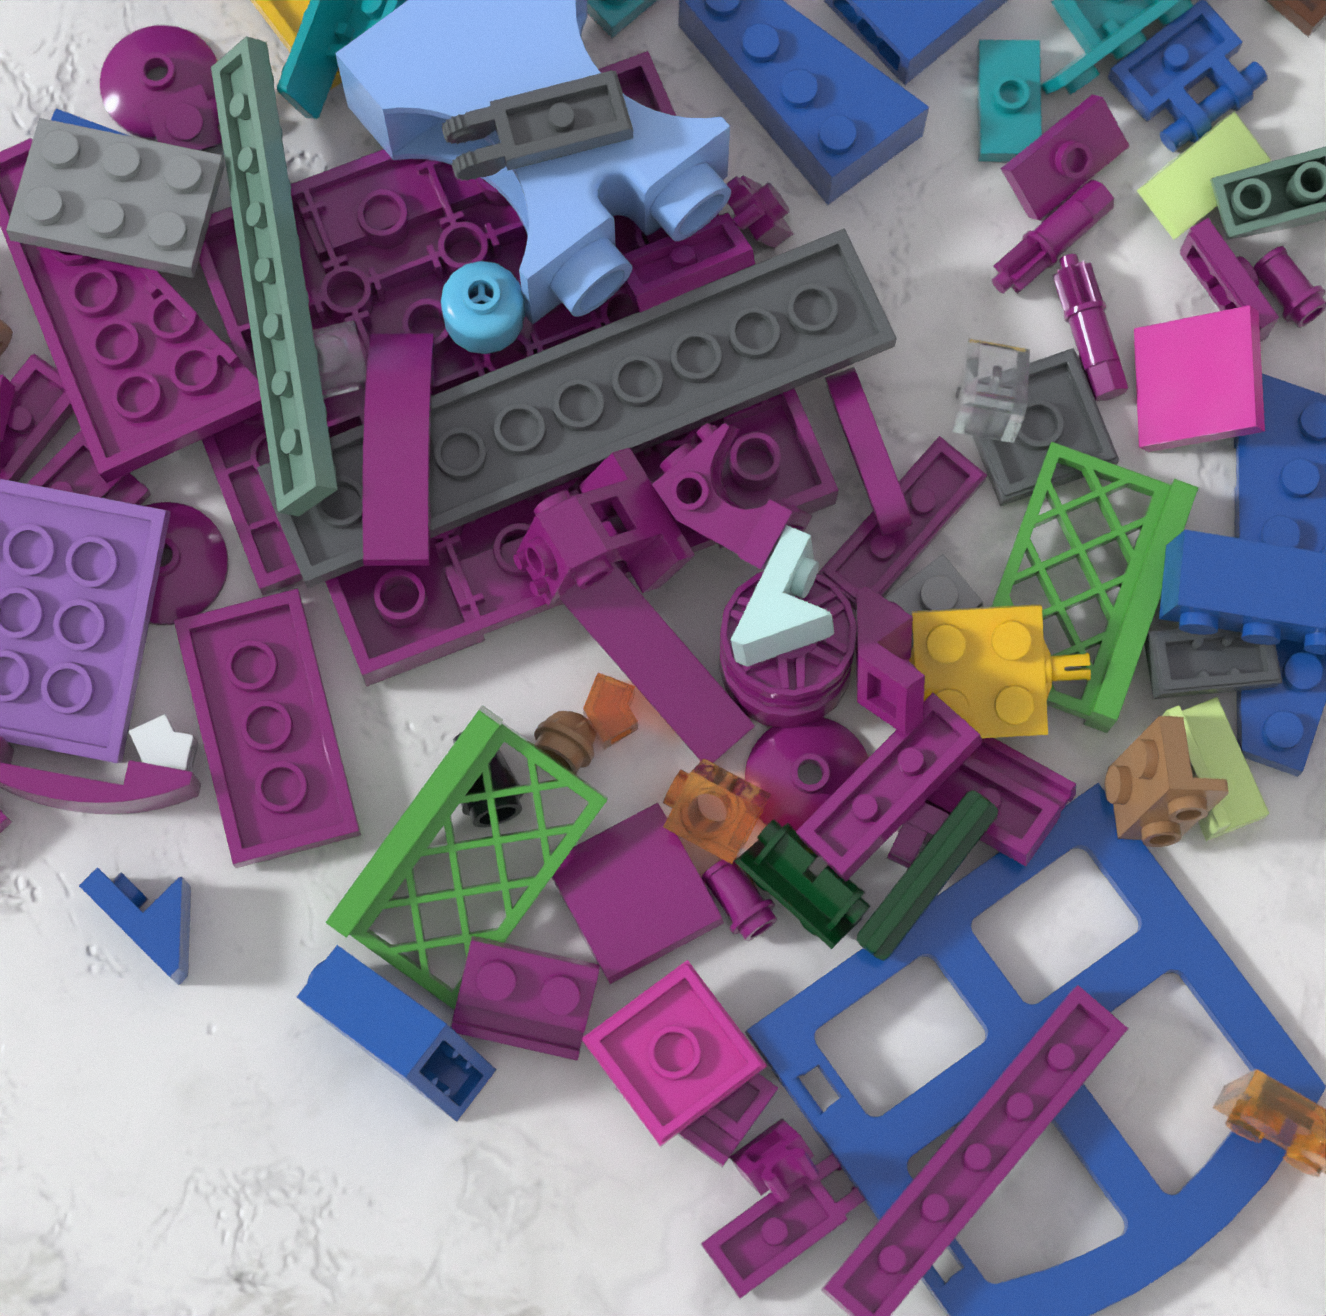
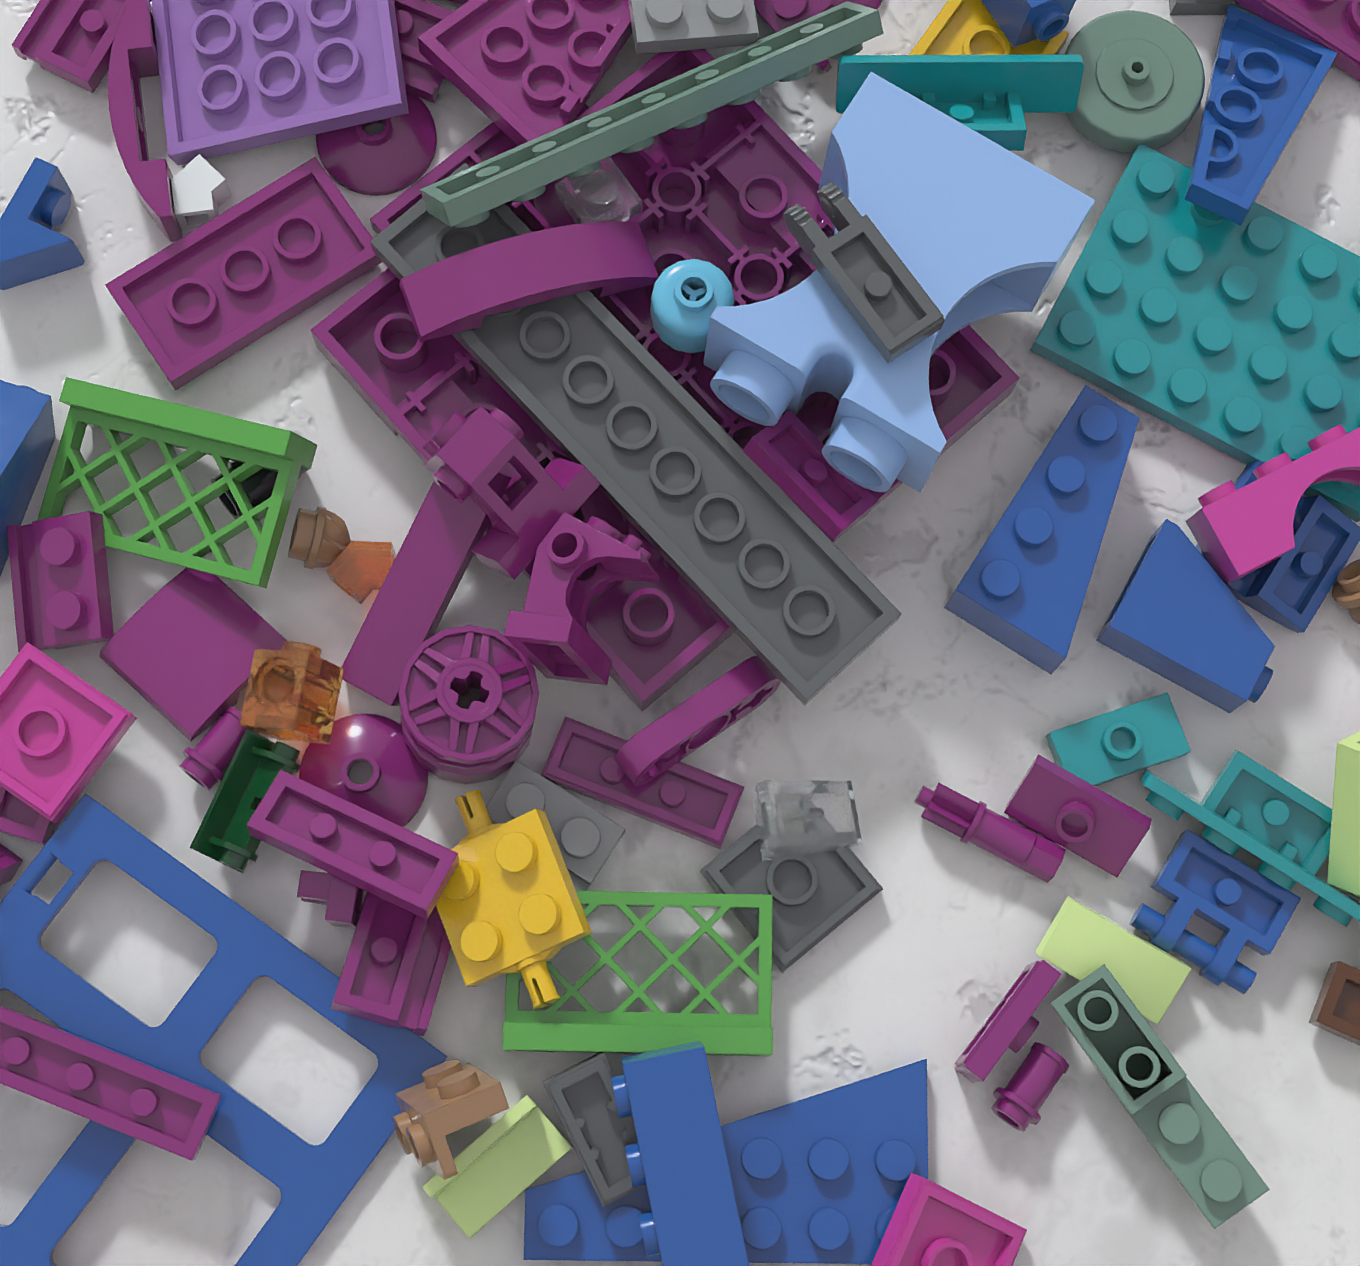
camera: 65 degrees right, 0 degrees up
(759, 210) = (904, 533): magenta plate -> none
(774, 616) = (464, 662): light aqua slope -> none
(884, 676) = (480, 787): magenta slope -> none
(927, 875) = (284, 912): dark green axle -> none
(1090, 328) = (911, 897): magenta piece -> none
(1199, 379) = (891, 1022): dark pink tile -> none

